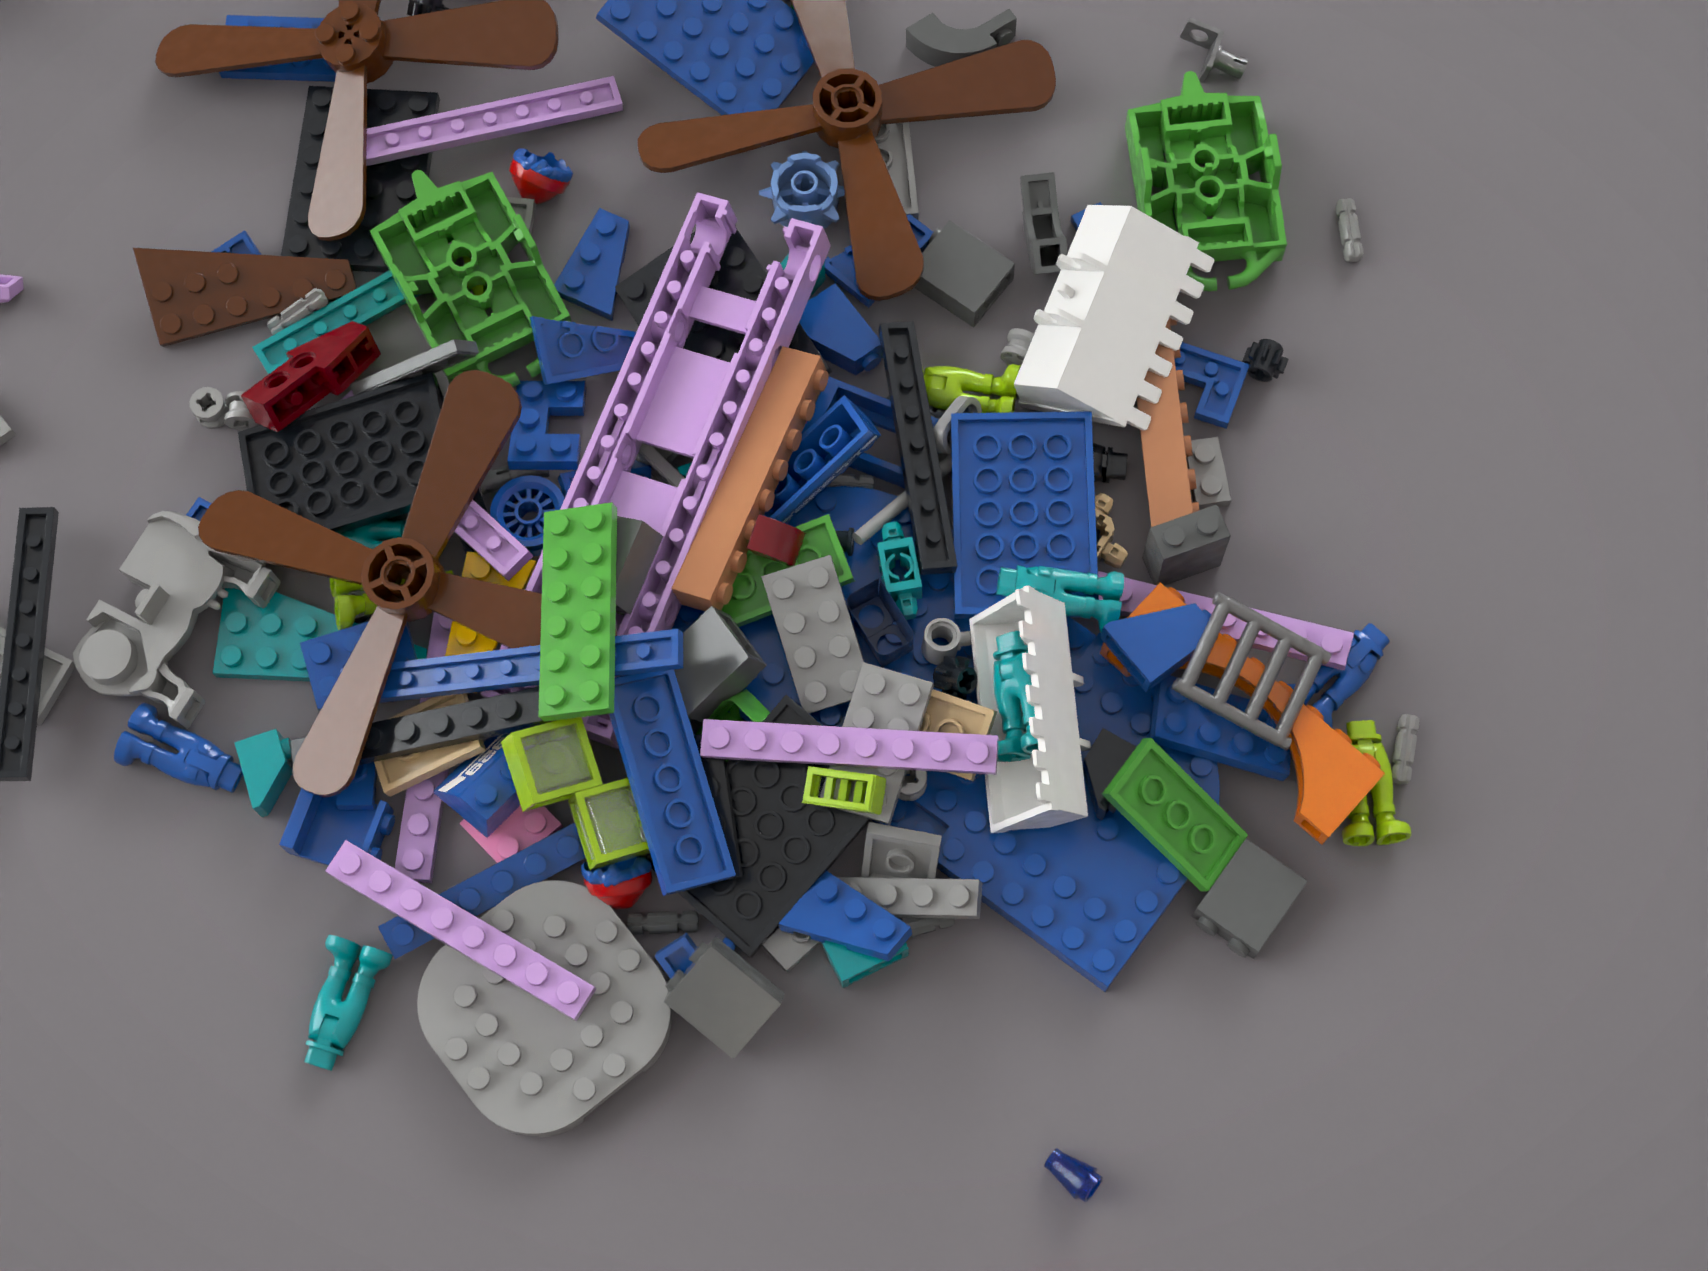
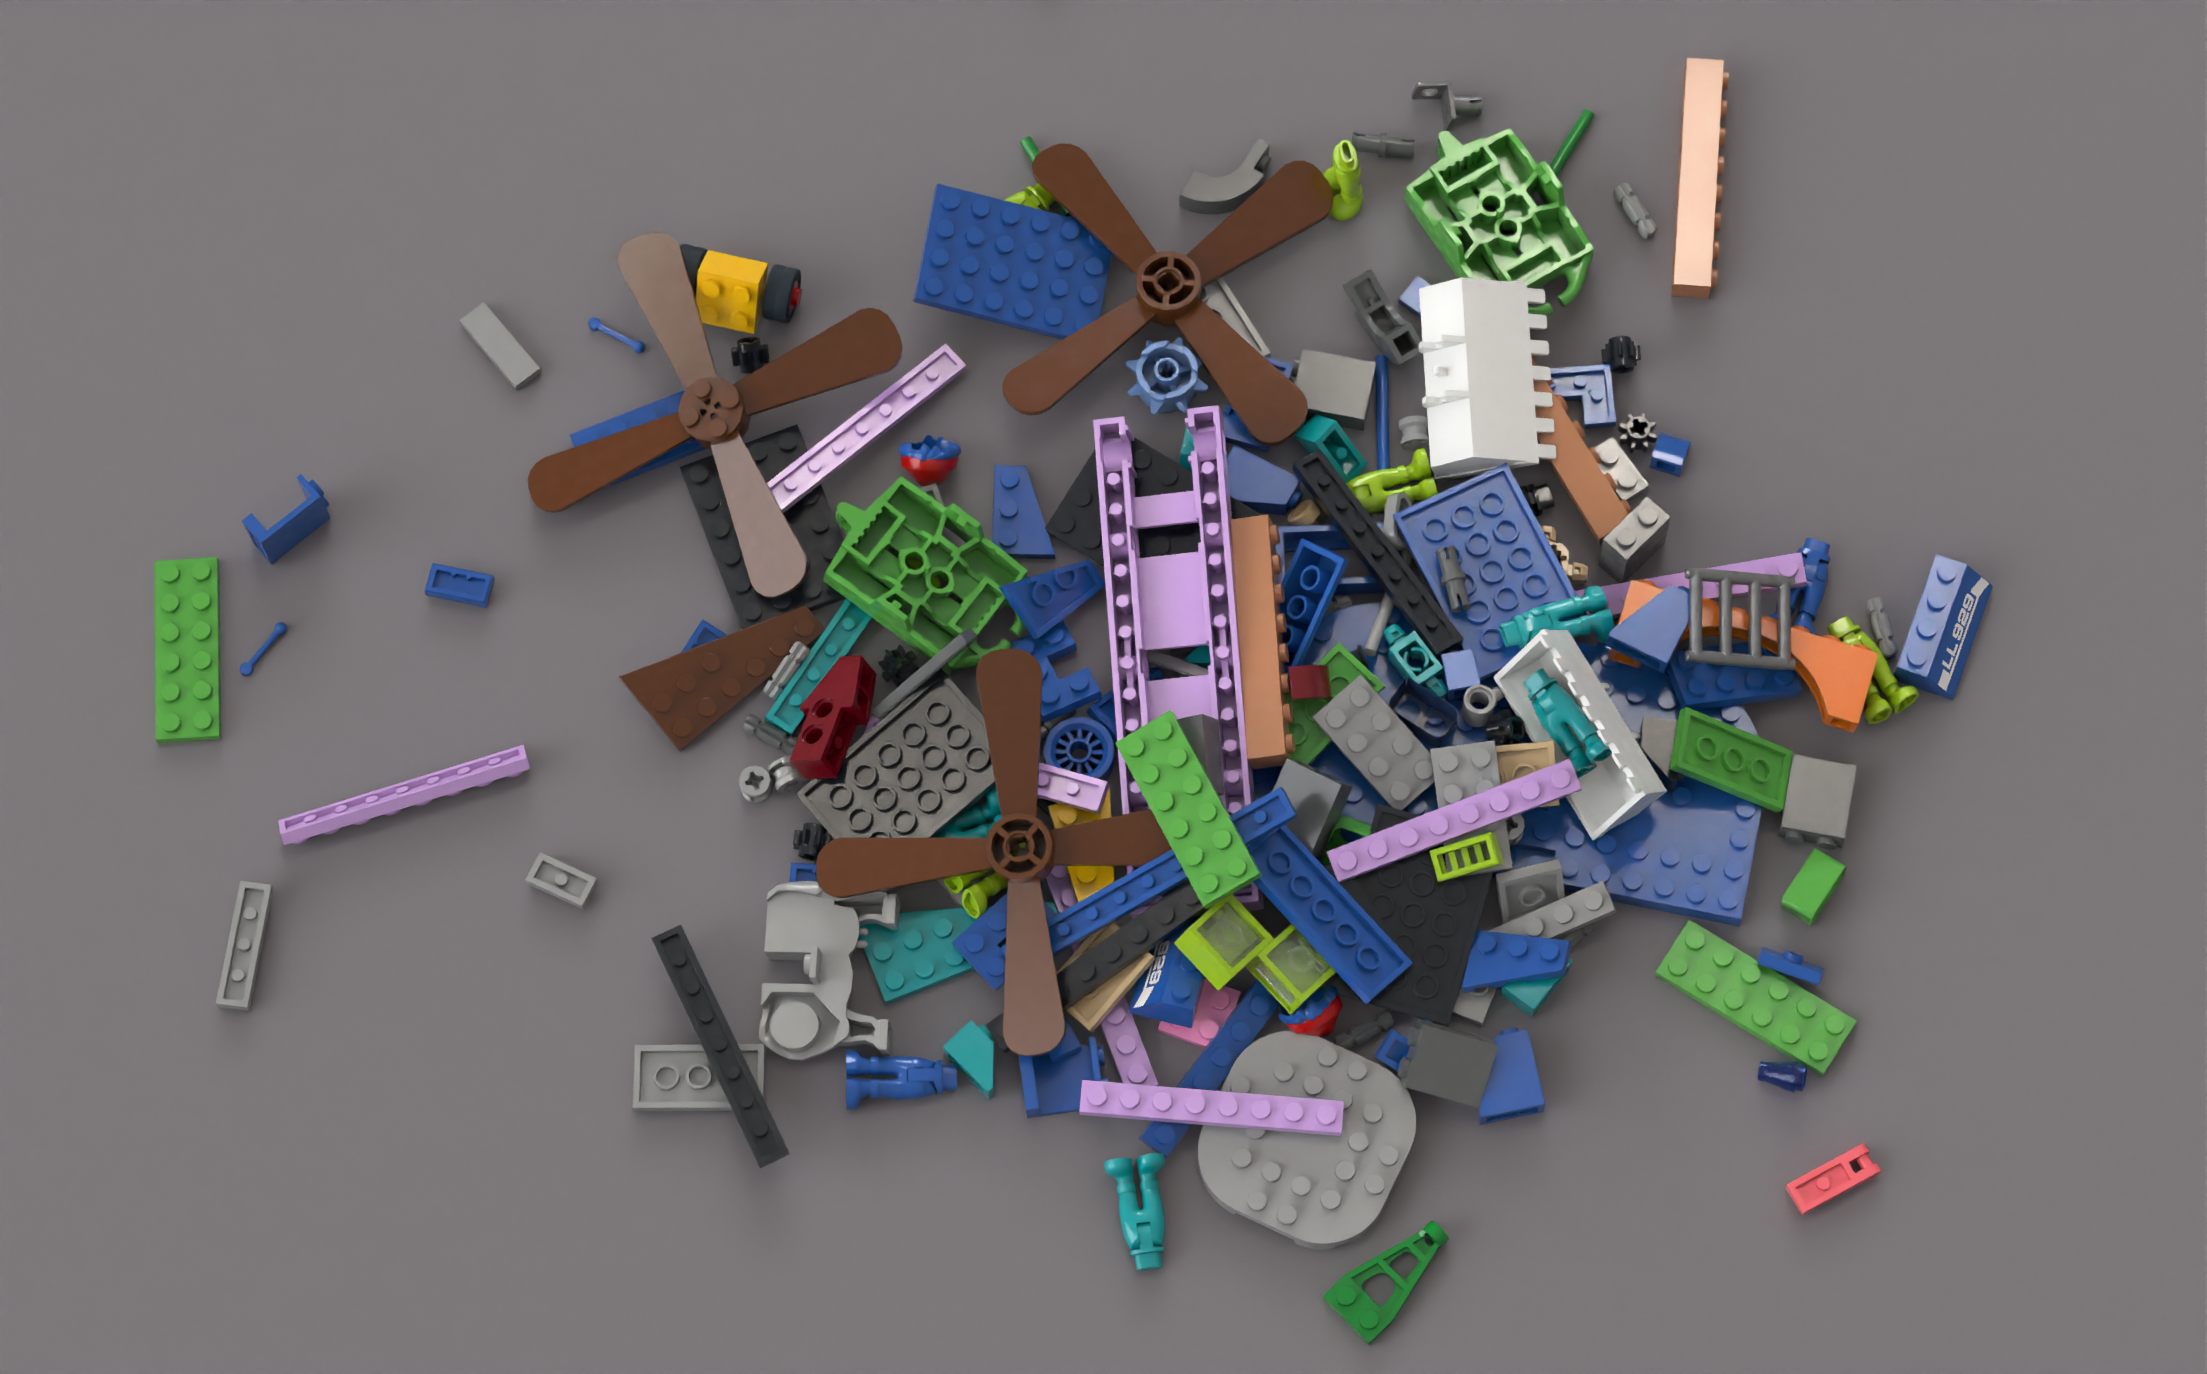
camera: 25 degrees left, 0 degrees up
(50, 107) = (459, 585): none -> blue plate
(226, 481) = (811, 840): none -> black gear
(247, 361) = (769, 734): none -> dark grey axle
(405, 345) = (893, 659): none -> black gear
(506, 1212) = (1358, 1308): none -> green plate
(784, 1044) = (1513, 1082): none -> blue slope
(871, 381) = (1304, 514): none -> tan tile
(932, 328) = (1334, 444): none -> teal slope
(937, 598) = (1459, 672): none -> panel
(977, 502) = (1453, 579): none -> dark grey pin
(1000, 317) = (1382, 412): none -> blue bar
(1072, 80) = (1344, 179): none -> lime piece
(1085, 1078) = (1755, 998): none -> bright green plate
(1129, 66) = (1383, 145): none -> dark grey pin
(1137, 1059) = (1790, 964): none -> blue plate
(1201, 987) = (1813, 886): none -> bright green piece
(1236, 444) = (1634, 440): none -> black gear
(1267, 479) = (1669, 454): none -> blue brick
(1315, 140) = (1571, 141): none -> green bar
(1426, 225) = (1698, 178): none -> brick
(1470, 778) = (1943, 628): none -> blue slope

